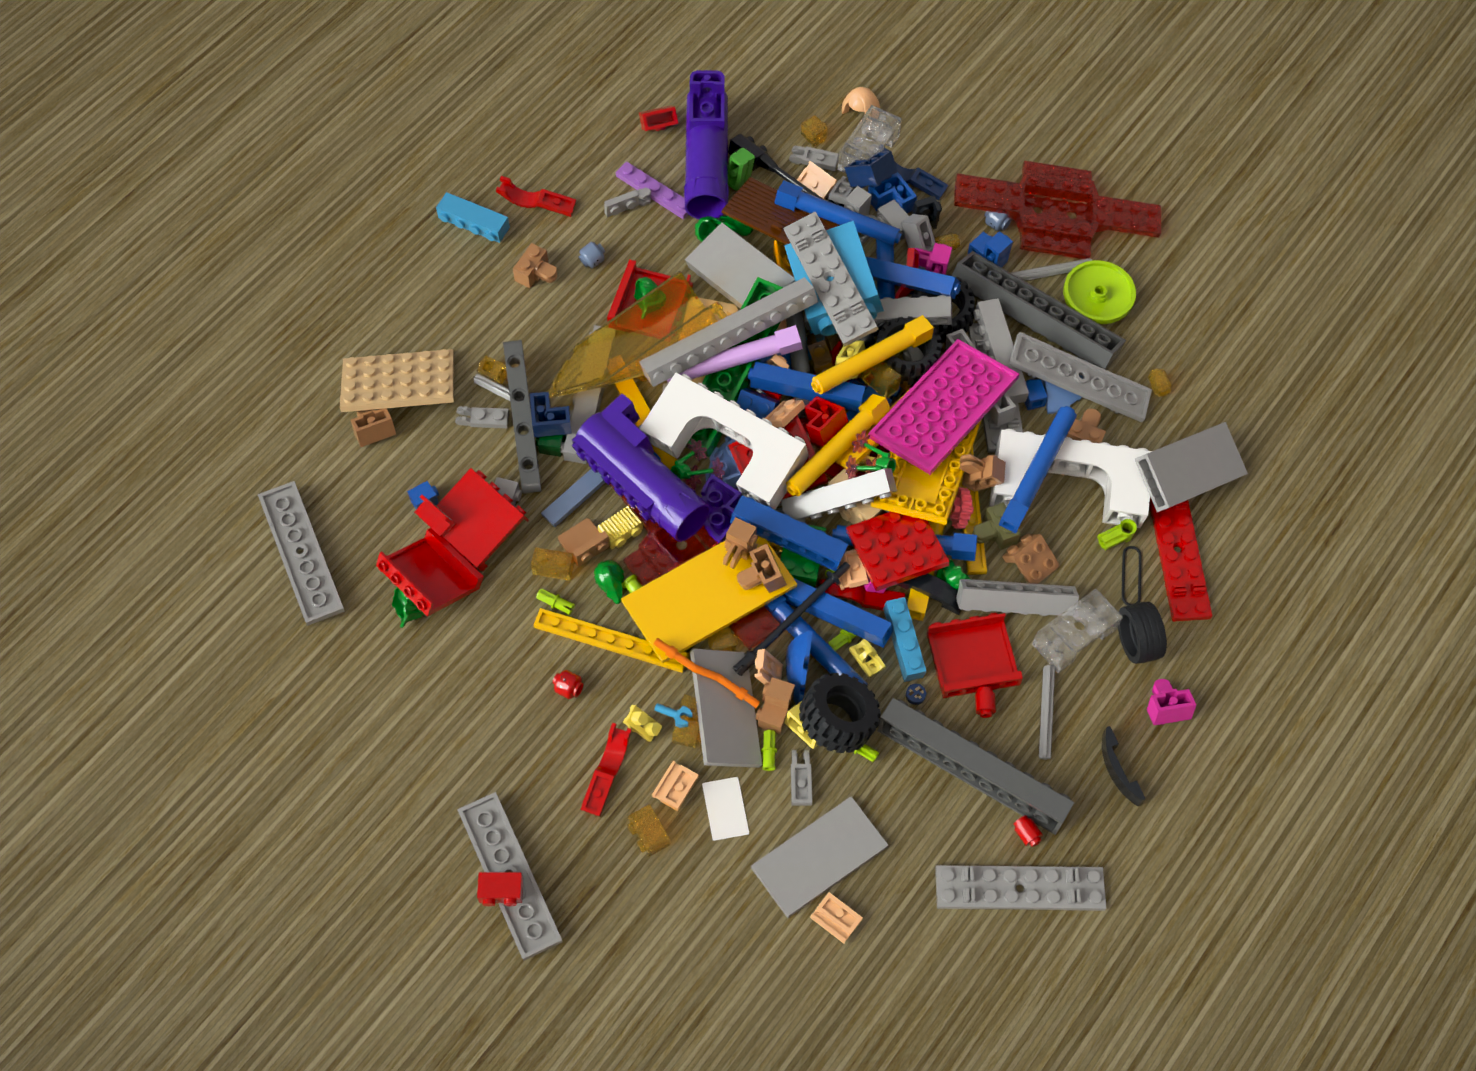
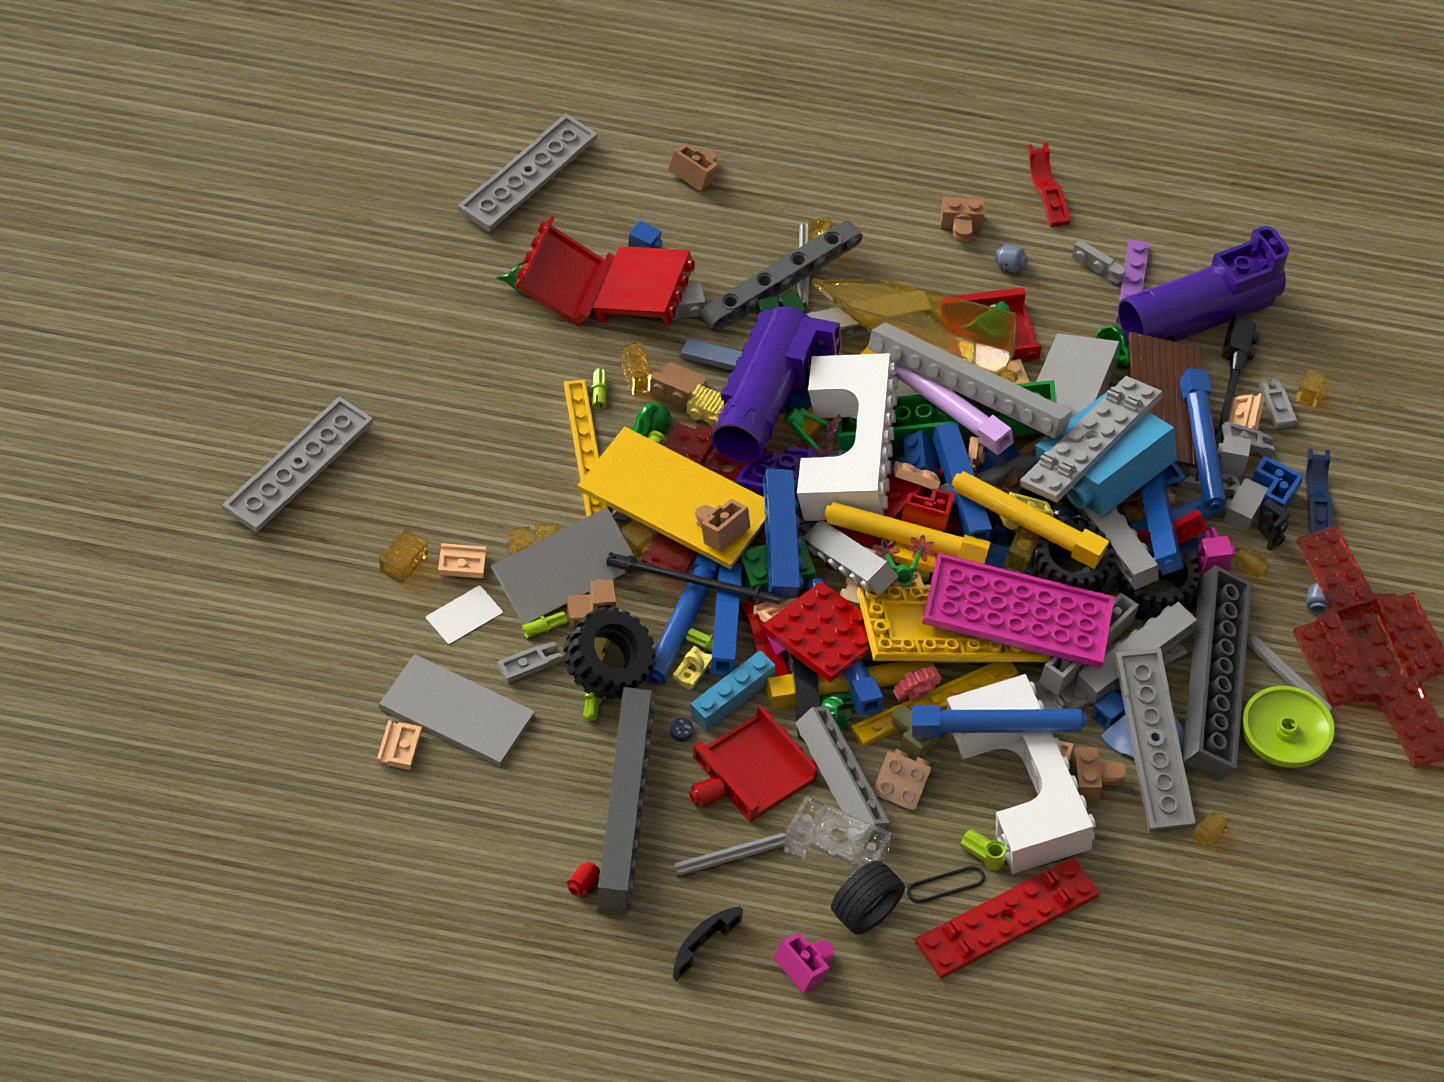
camera: 60 degrees right, 10 degrees down
(397, 380) = (757, 164): tan plate -> none
(434, 517) = (624, 248): red panel -> none
(472, 217) = (986, 145): dark azure brick -> none
(483, 417) = (762, 248): light grey hinge -> none
(500, 888) = (276, 453): red brick -> none
(548, 420) = (786, 285): dark blue brick -> none
(568, 684) = (516, 431): red head -> none
(606, 771) = (439, 499): red piece -> none
(638, 717) = (509, 496): light yellow hips -> none
(658, 118) = (1215, 239): red brick -> none
(672, 652) = (586, 568): orange bar -> none
(676, 714) = (530, 522): dark azure bar -> none
(739, 541) = (739, 486): medium nougat brick -> none
(740, 168) = (1207, 334): bright green brick -> none
(767, 667) = (627, 584): light nougat plate -> none
(797, 663) = (652, 604): blue brick -> none
(860, 100) = (1382, 420): light nougat hair -> none
(872, 170) = (1280, 445): dark blue brick -> none
(875, 124) = (1305, 432): clear plate -> none
(918, 232) = (1237, 522): light grey brick -> none
(982, 472) = (962, 676): medium nougat brick -> none
(992, 248) = (1269, 606): blue brick -> none
(1043, 888) = (530, 920): light grey piece -> none
(1191, 466) = (1105, 877): light grey brick -> none

